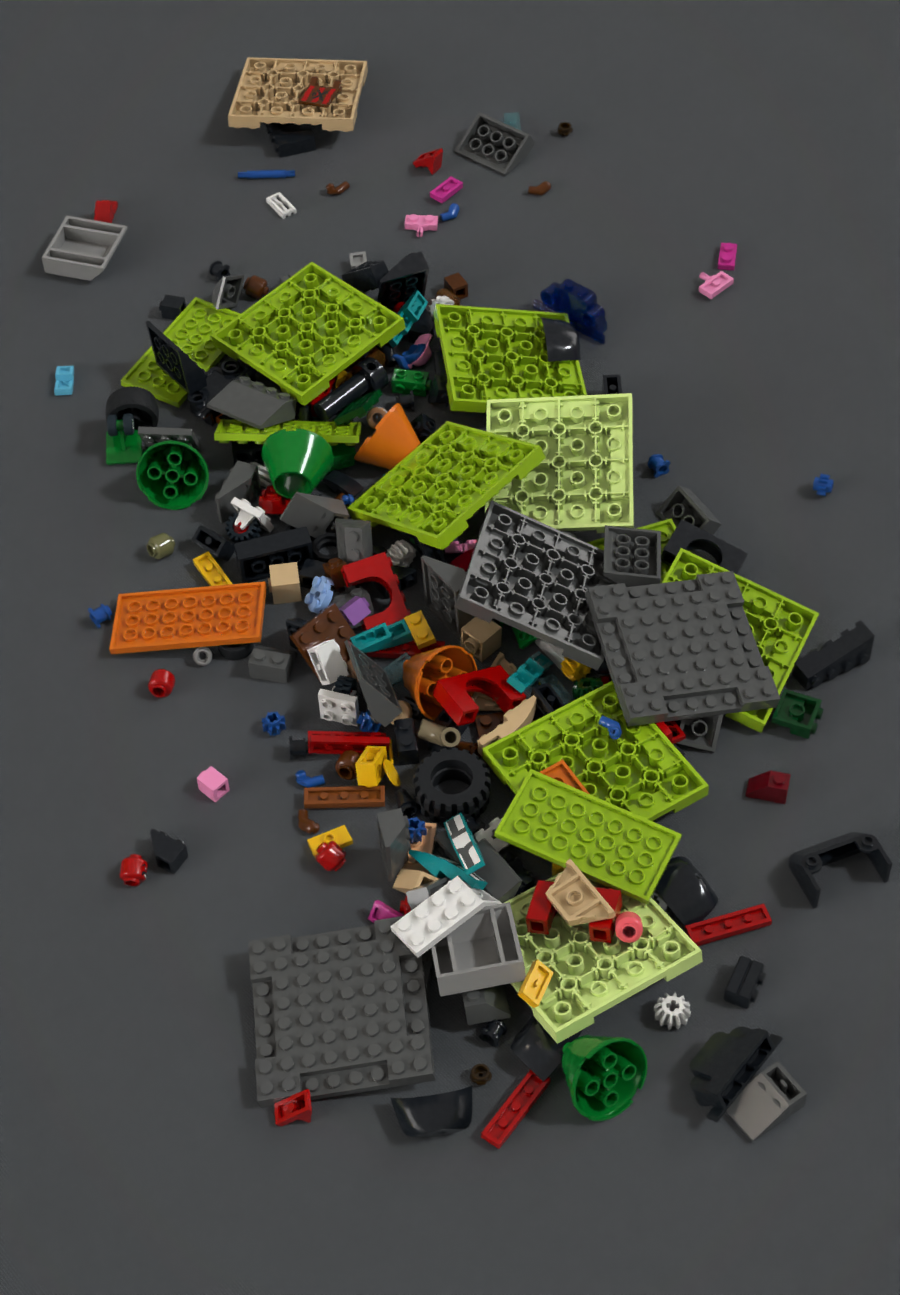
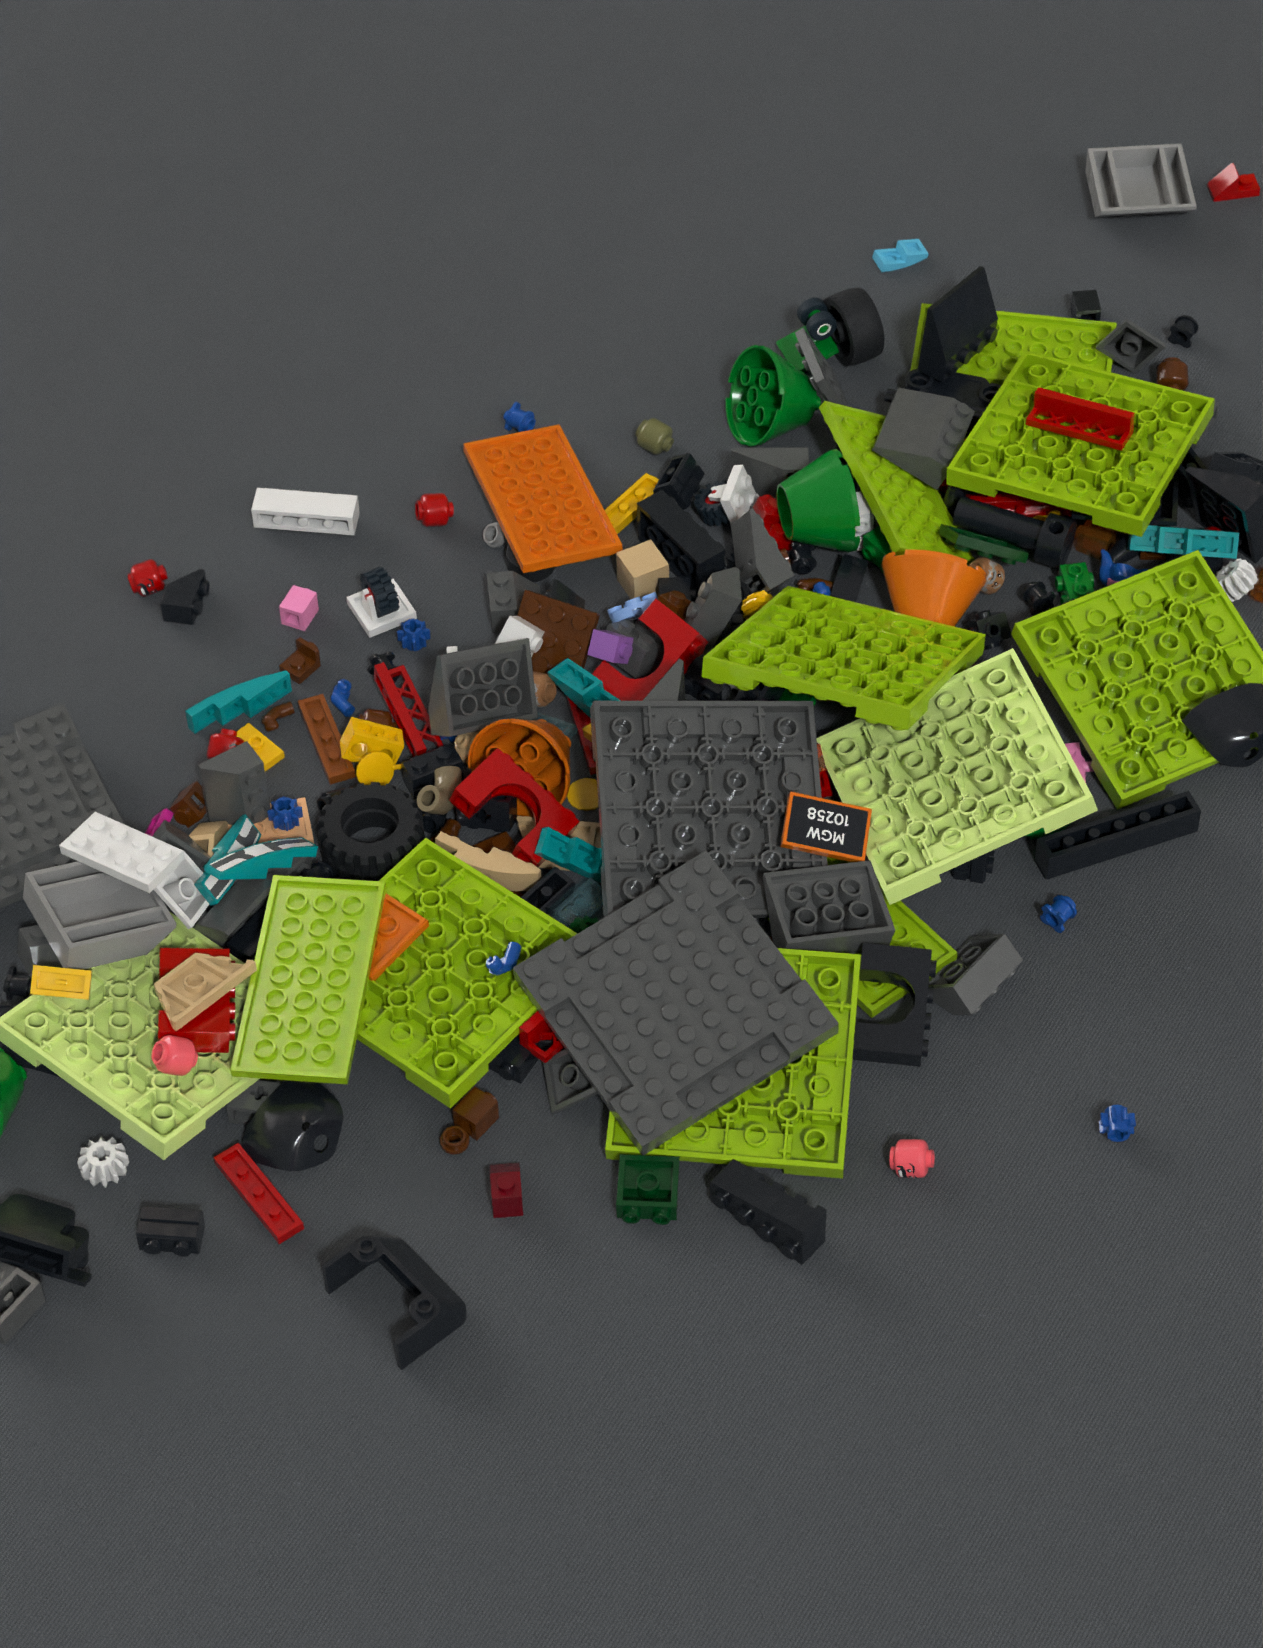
camera: 70 degrees right, 0 degrees up
(122, 757) = (279, 508): none -> white brick
(236, 733) = (380, 603): none -> plate
(263, 795) = (302, 661): none -> reddish brown bracket
(285, 837) = (245, 698): none -> teal slope
(296, 320) = (1083, 416): none -> red fence
(376, 886) = (185, 809): none -> reddish brown brick
(576, 534) = (826, 827): none -> black tile
(715, 789) = (476, 1113): none -> reddish brown brick
(721, 803) = (454, 1133): none -> reddish brown plate
(816, 583) = (911, 1158): none -> coral head

